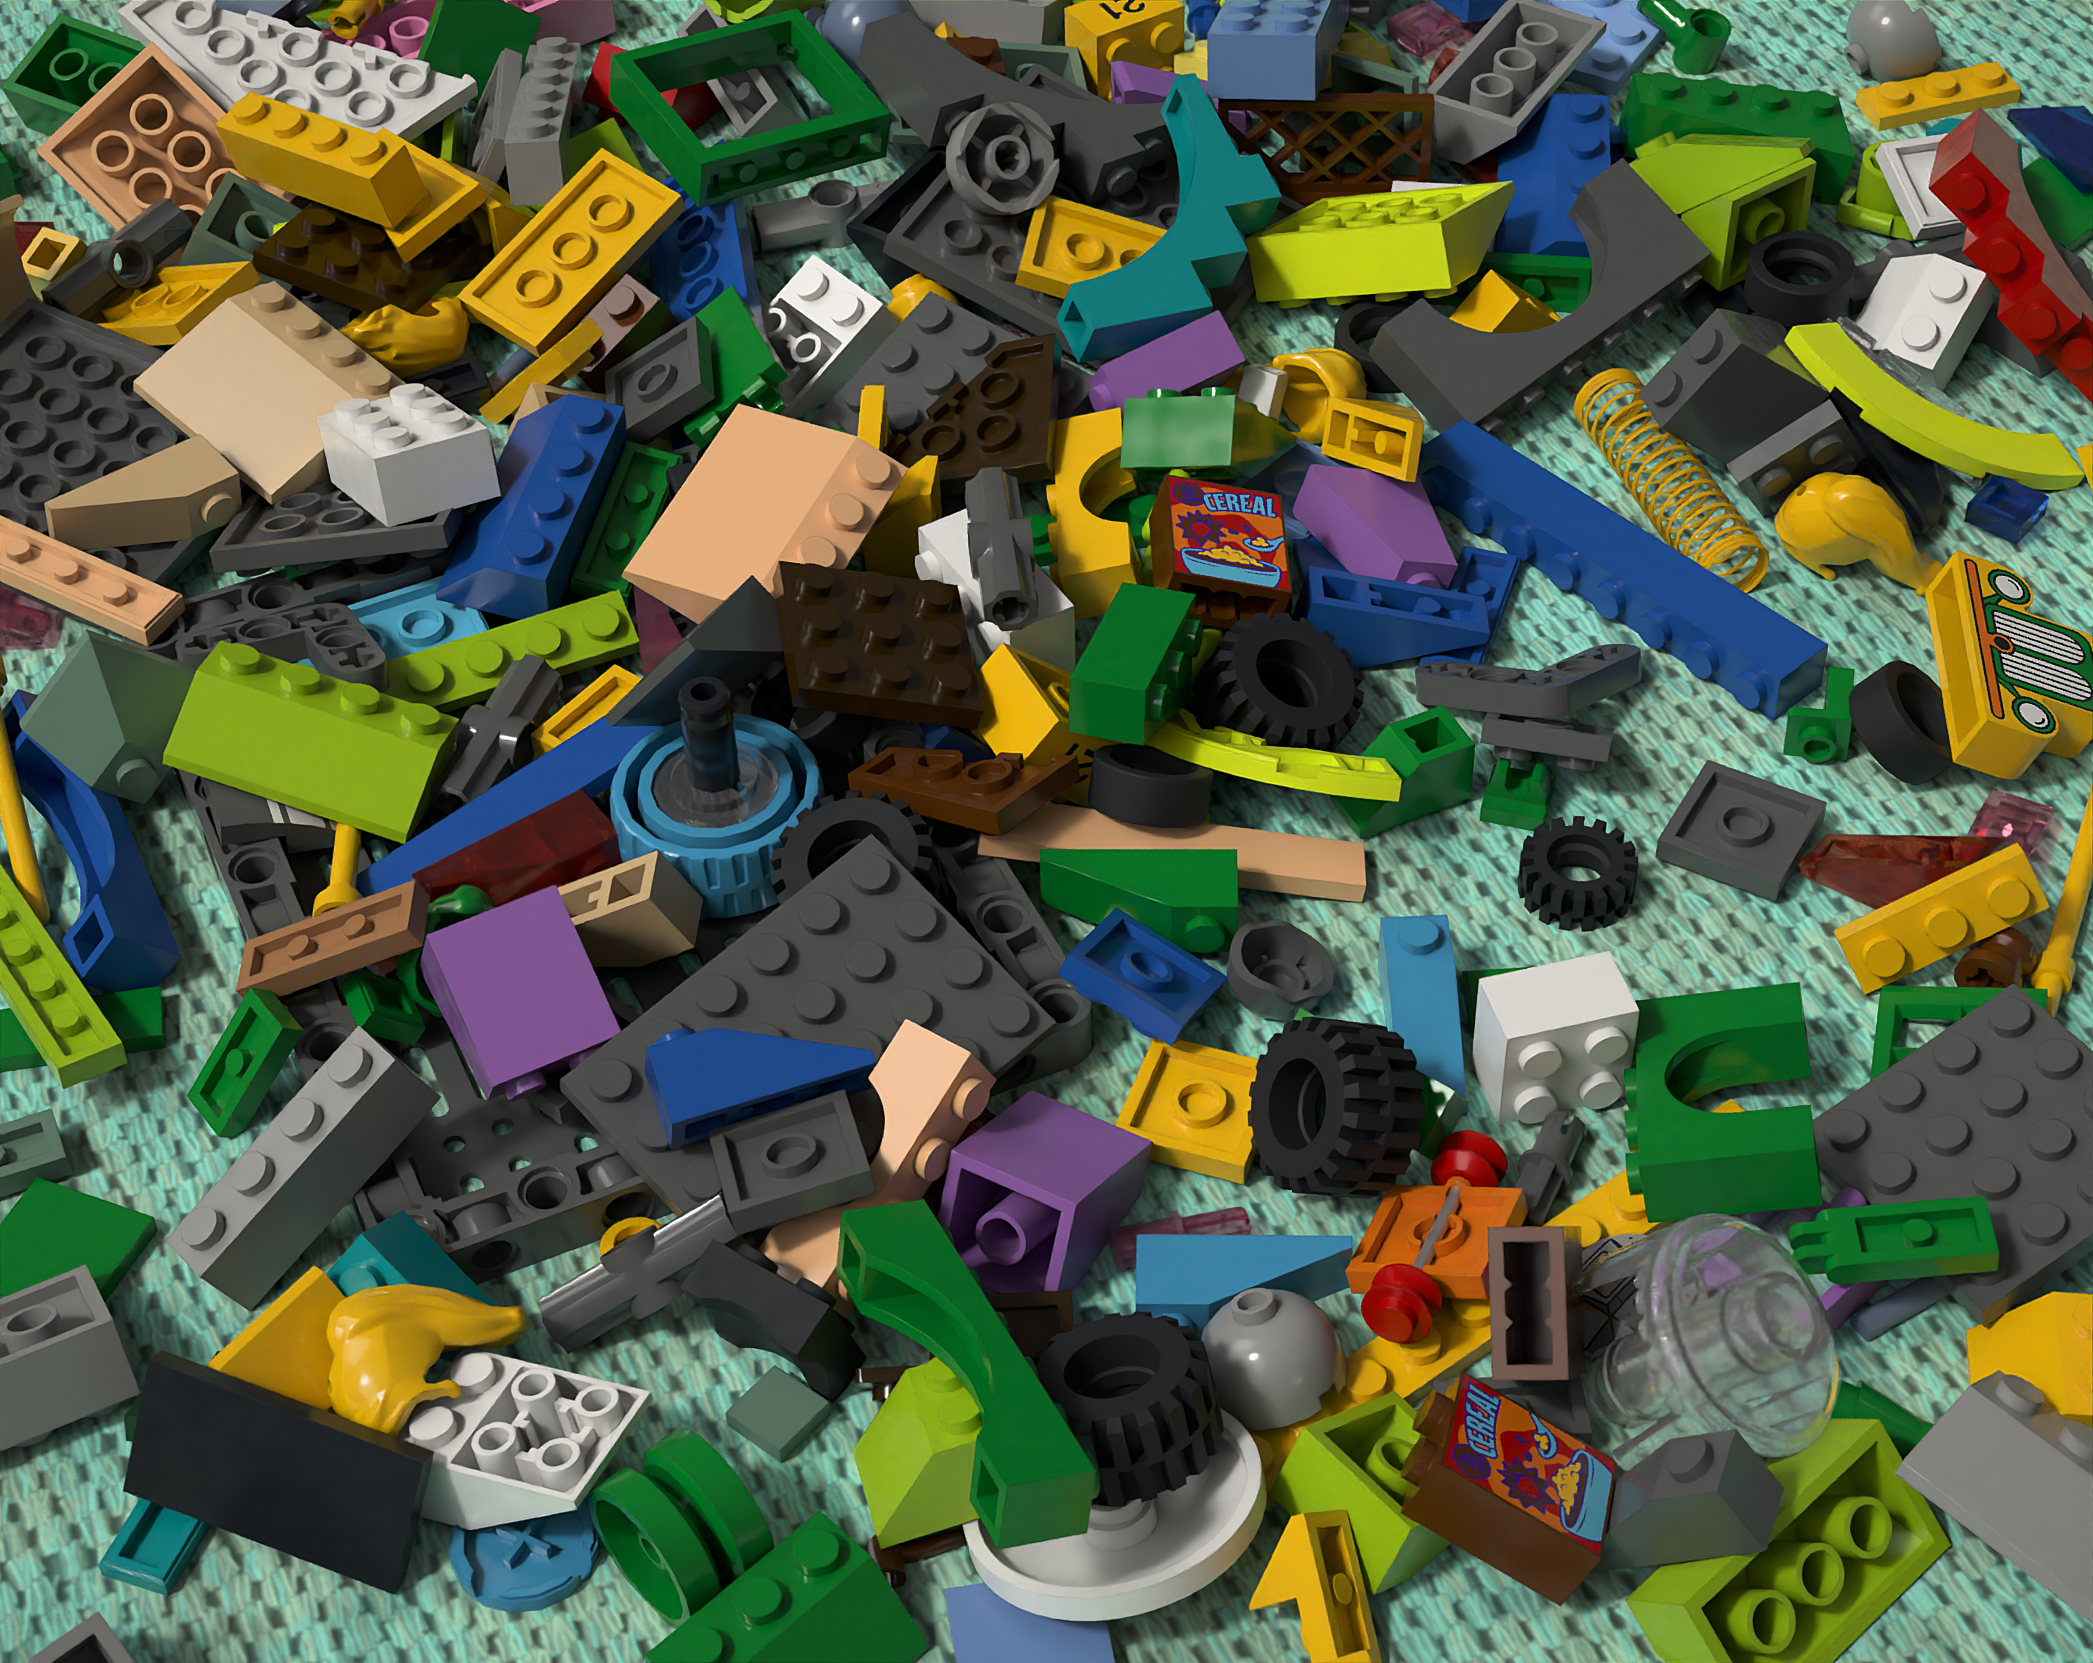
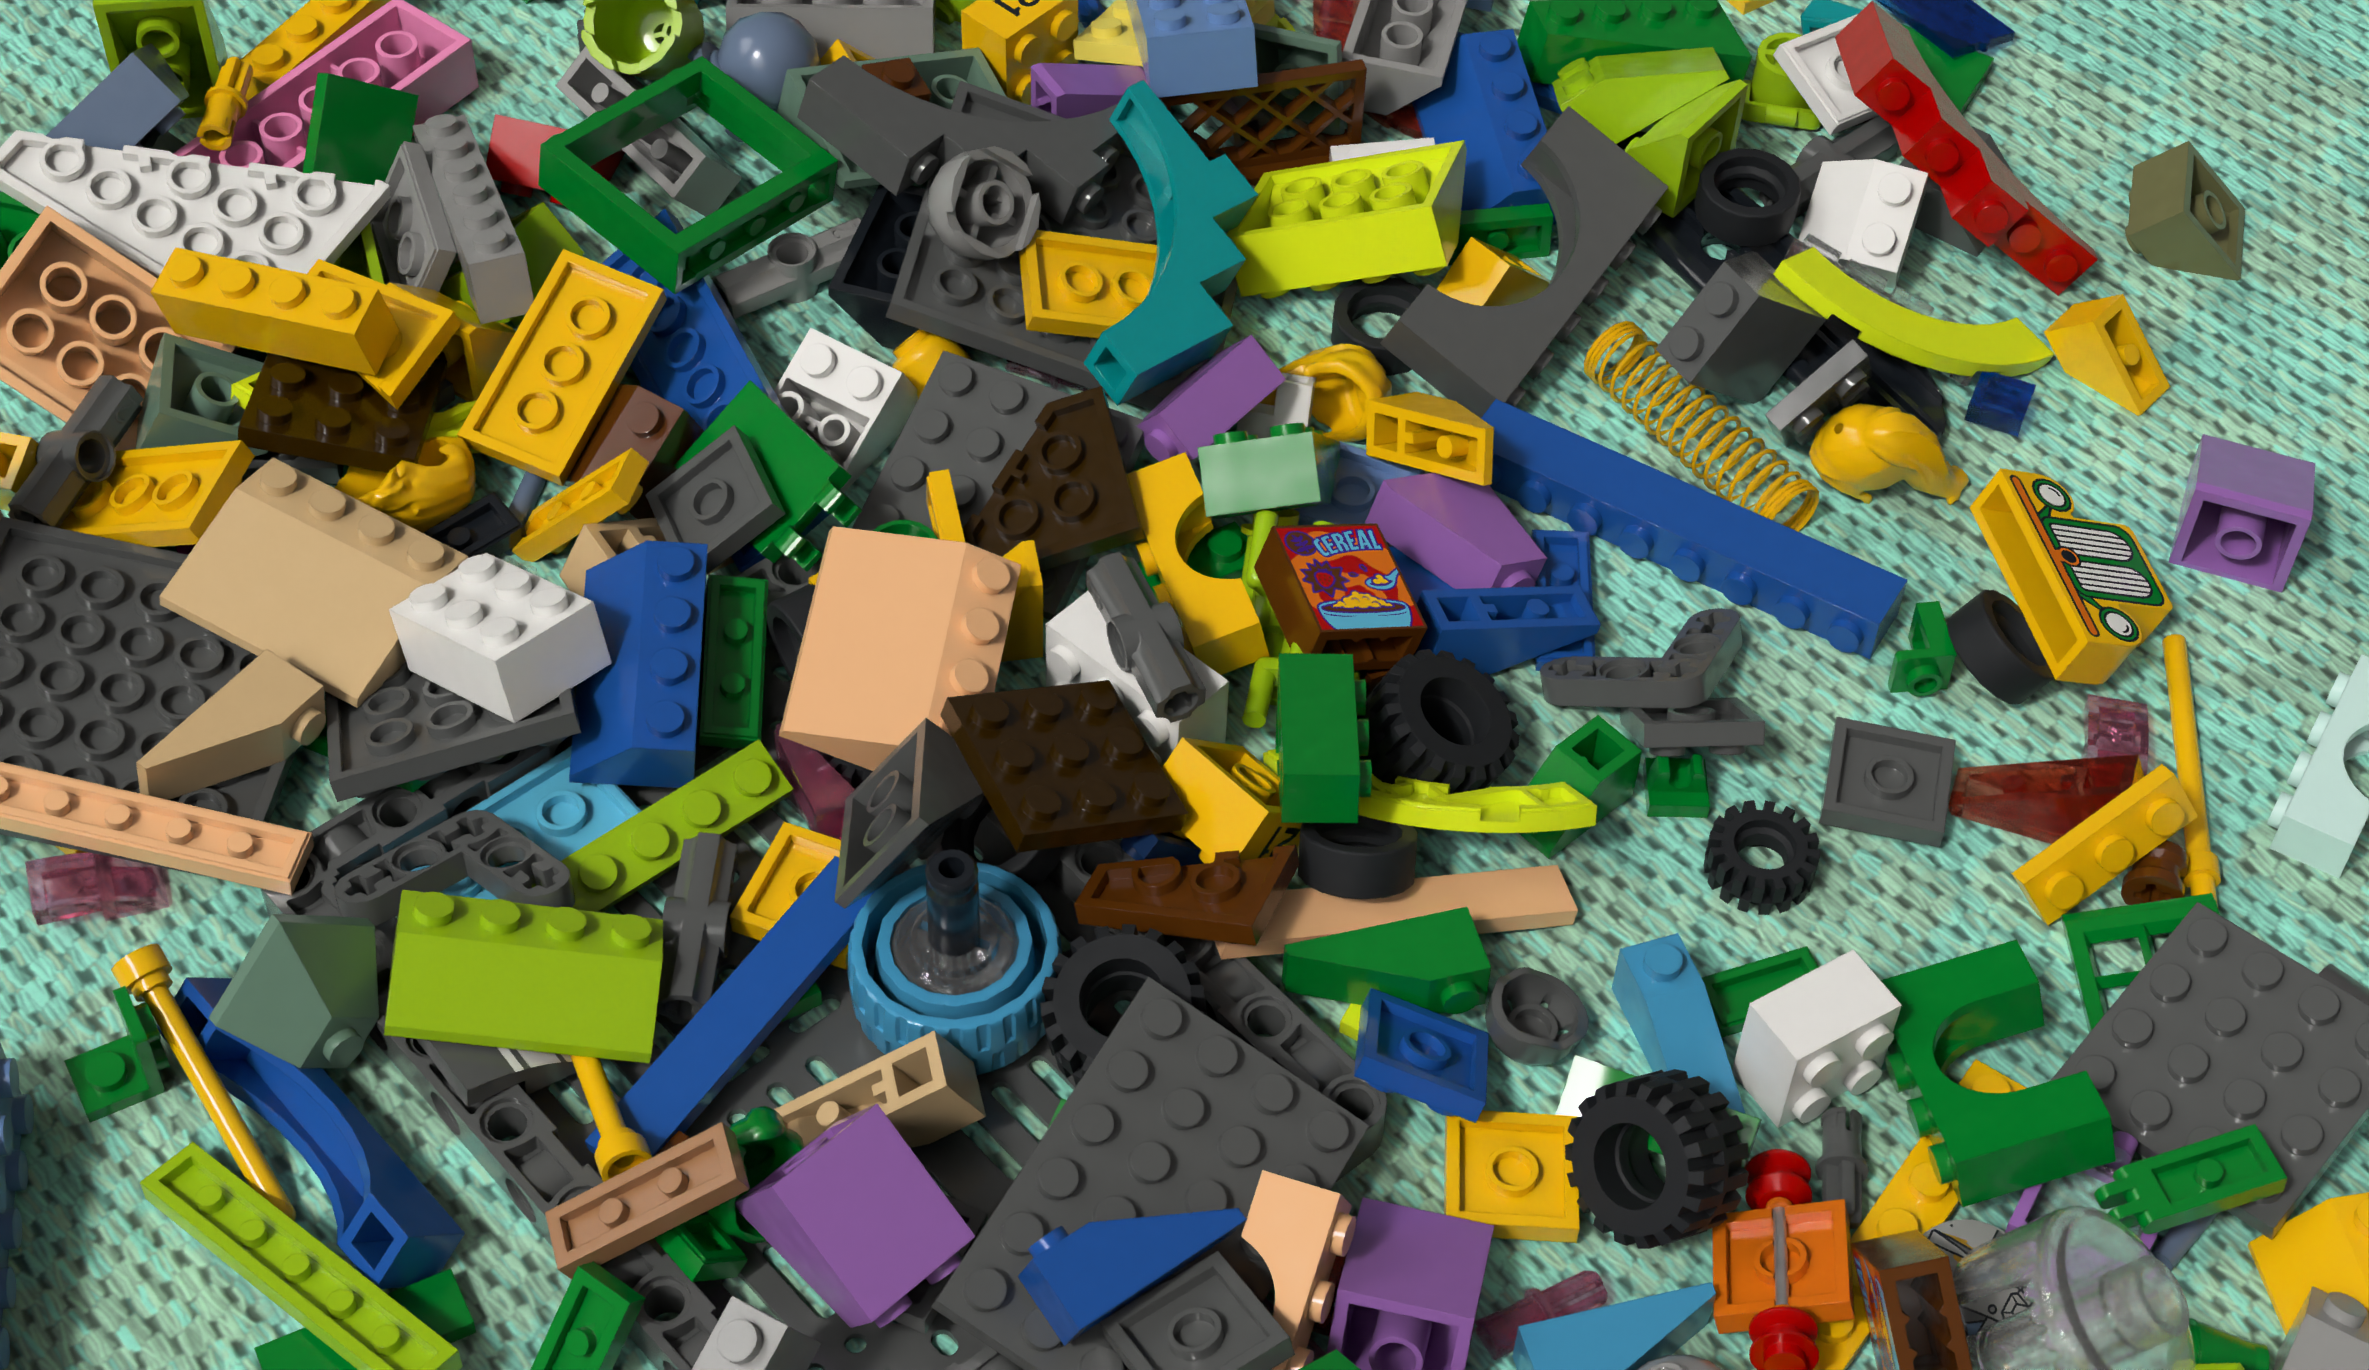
camera: 20 degrees left, 5 degrees up
(531, 854) = (795, 1050): clear red slope -> none

